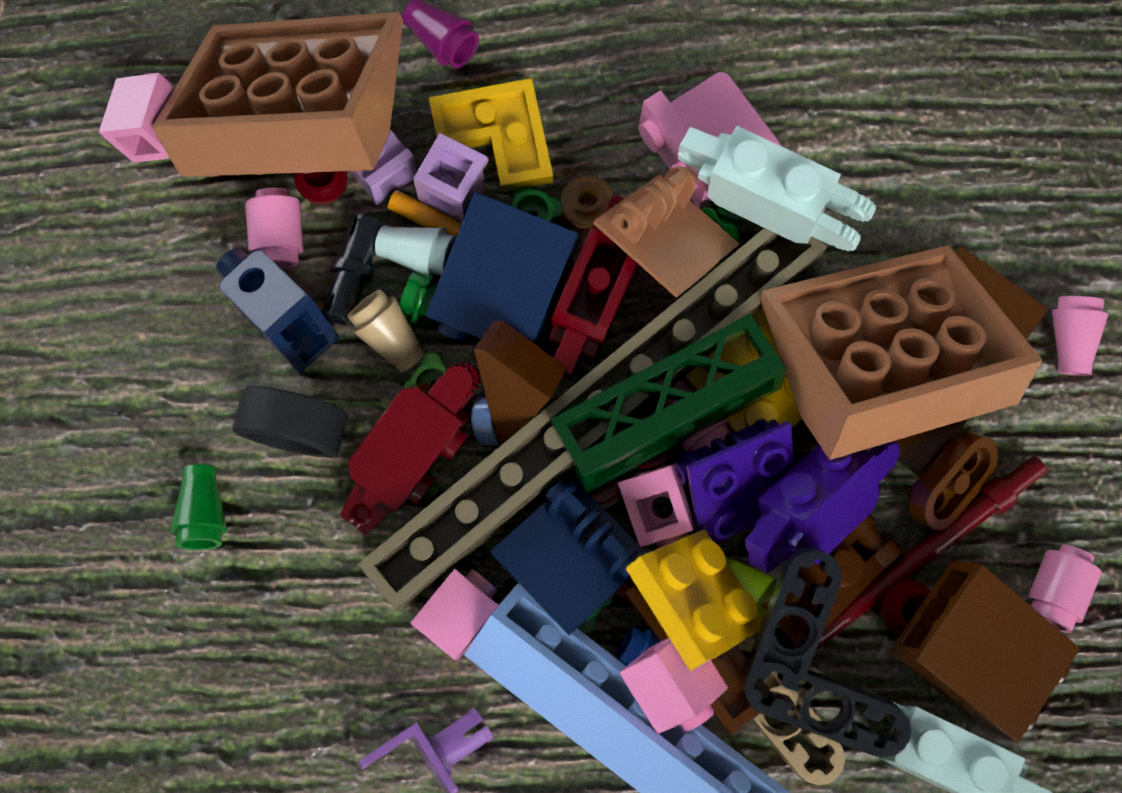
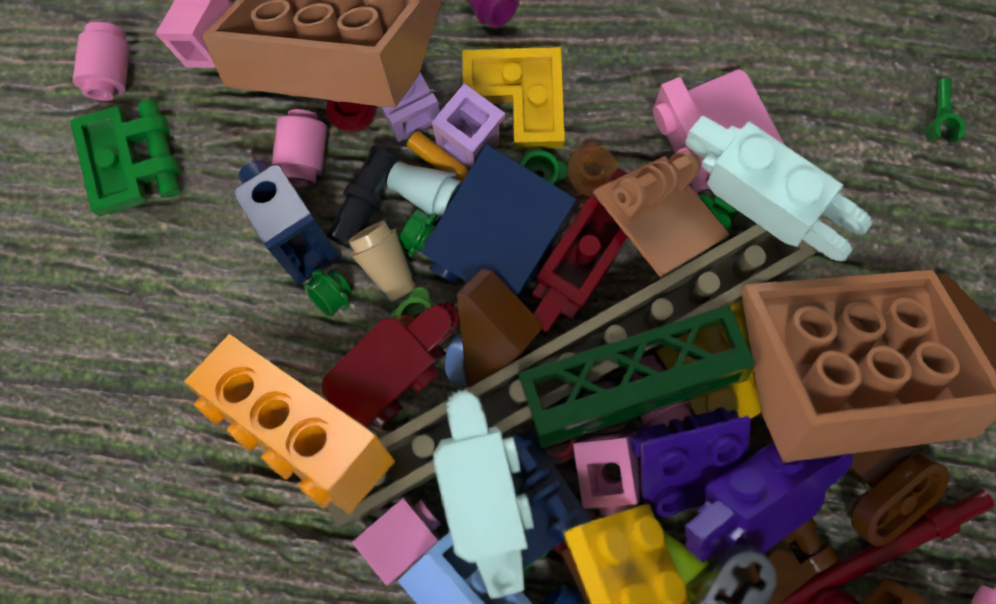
camera: 20 degrees right, 0 degrees up
(41, 171) = (101, 61): none -> bright pink brick
(72, 277) = (110, 162): none -> green plate
(199, 510) = (174, 402): green cone -> none
(290, 421) = (277, 330): black tyre -> none
(322, 513) = (289, 424): none -> light orange brick
(334, 374) = (328, 291): none -> green plate
(534, 548) = (480, 496): none -> light aqua hinge
(936, 85) = (945, 116): none -> green hand

